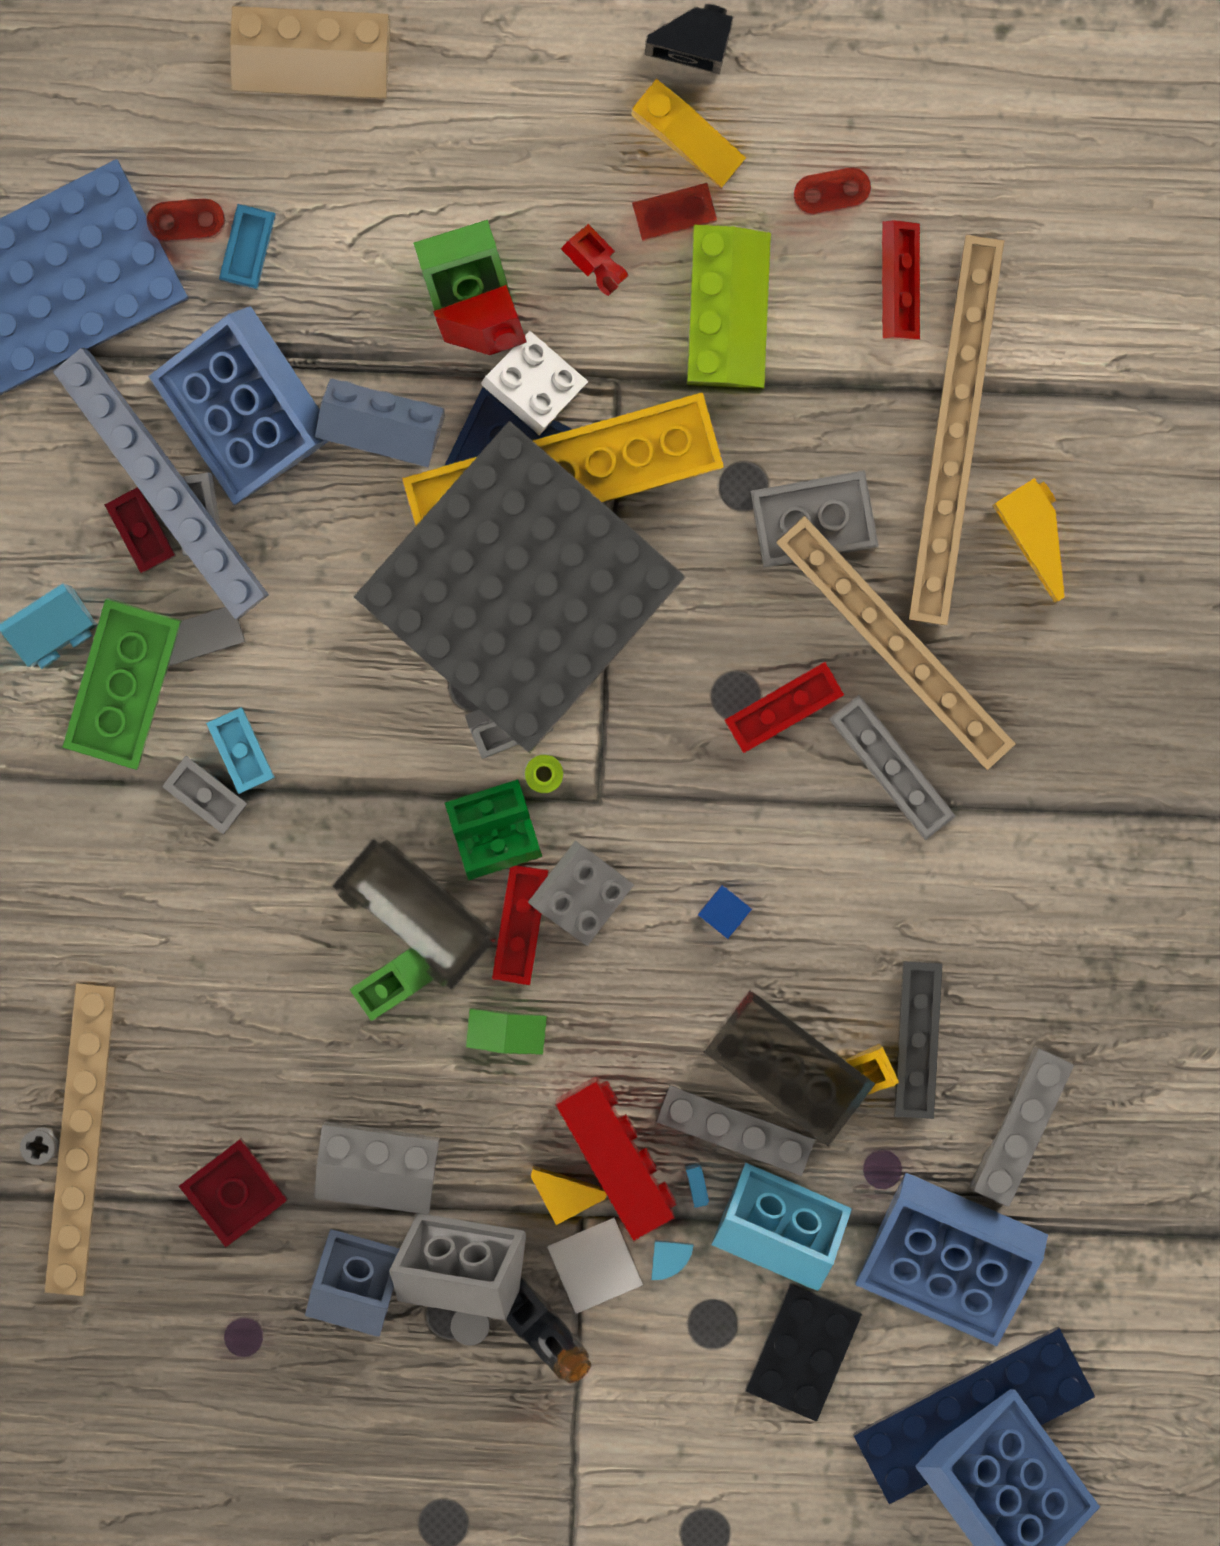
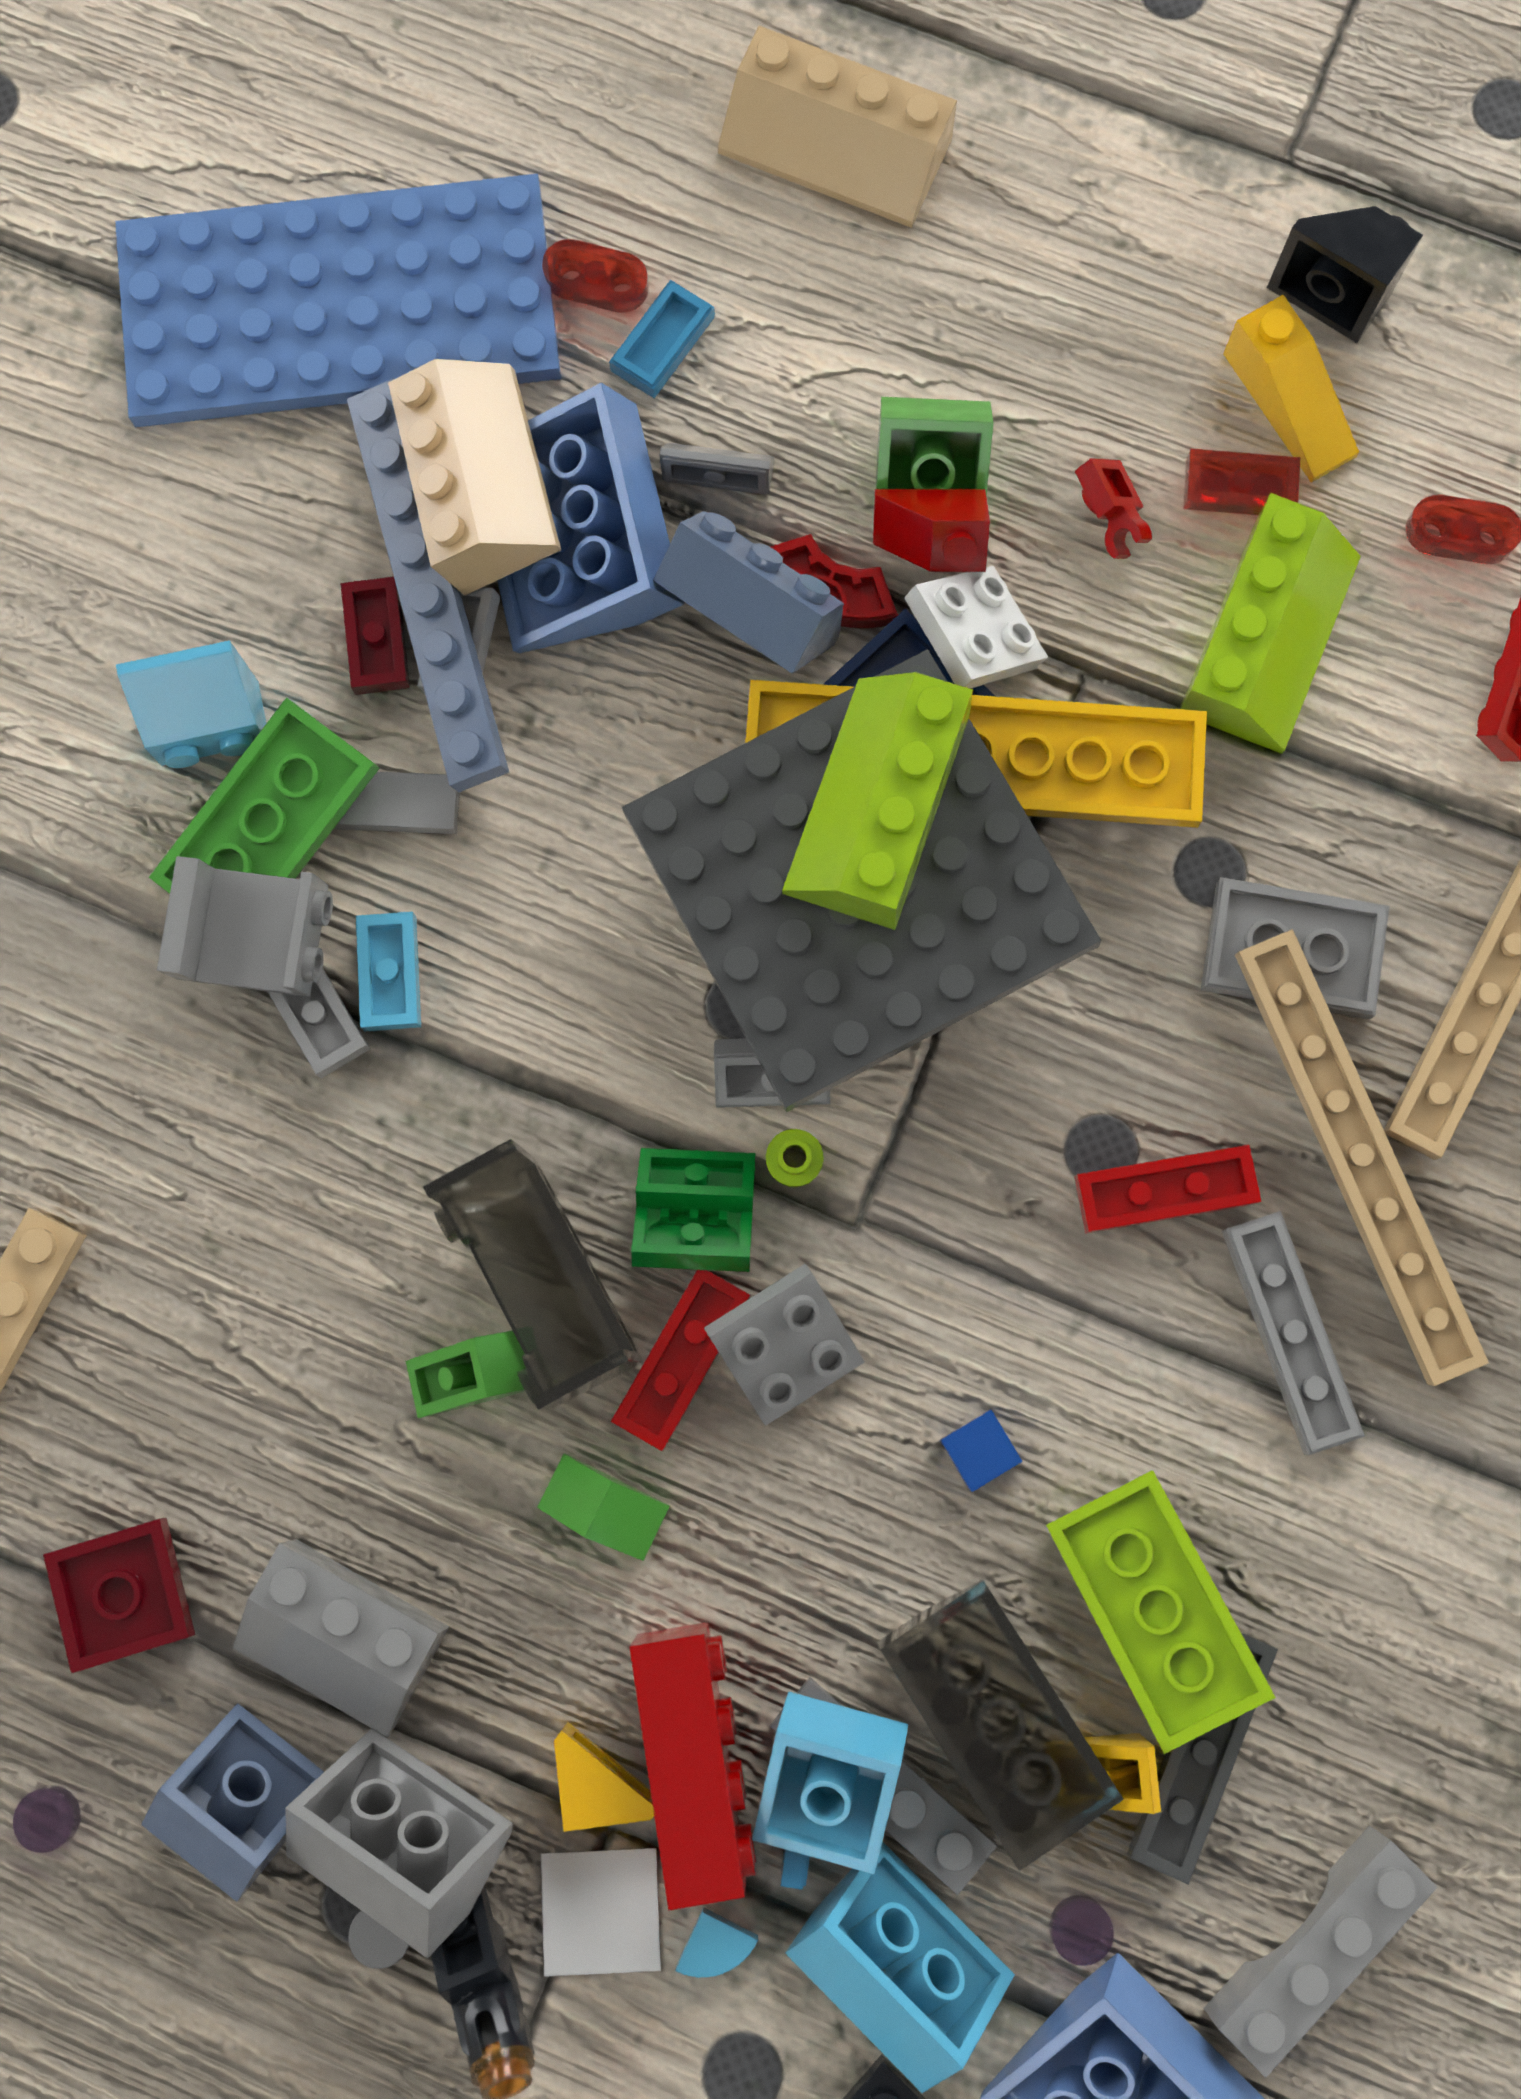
camera: 25 degrees right, 10 degrees down
(143, 759) = (244, 928): none -> light grey panel
(164, 399) = (473, 470): none -> tan slope
(320, 325) = (716, 468): none -> light grey slope
(433, 385) = (861, 590): none -> red tile
(514, 537) = (879, 796): none -> lime slope
(701, 1138) = (830, 1782): none -> medium azure slope
(862, 967) = (1160, 1612): none -> lime plate

